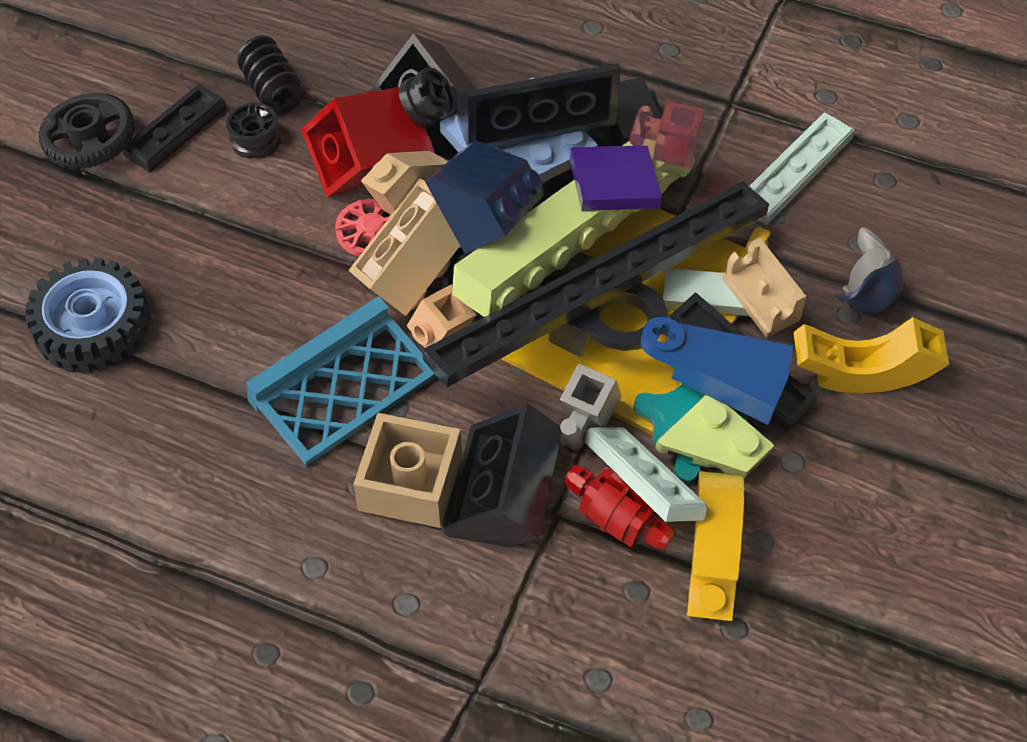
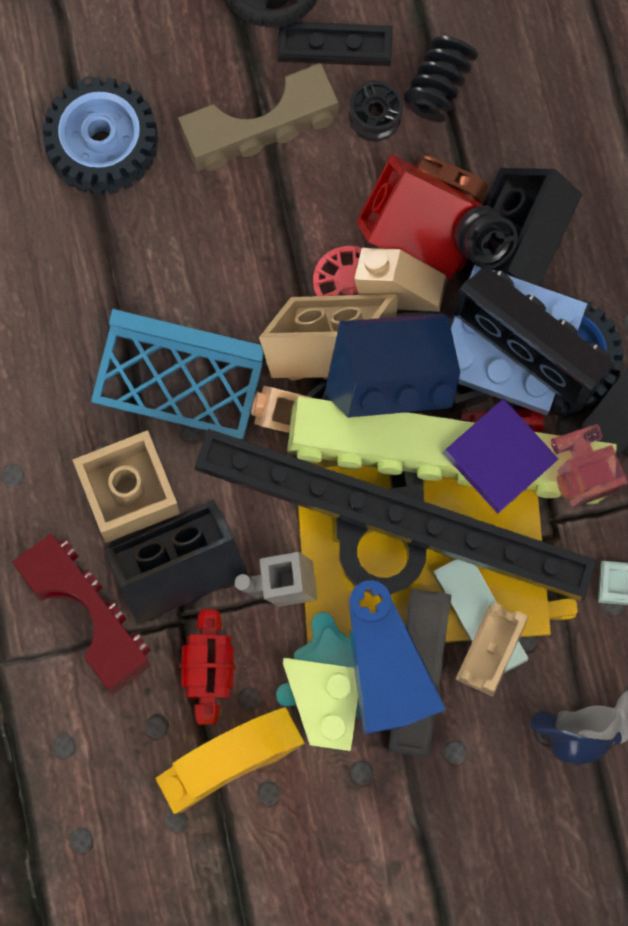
camera: 55 degrees right, 20 degrees up
(171, 237) = (217, 137): none -> dark tan arch
(439, 576) = (53, 574): none -> dark red arch
(646, 474) = (238, 670): light aqua tile -> none
(876, 364) = (491, 777): yellow arch -> none

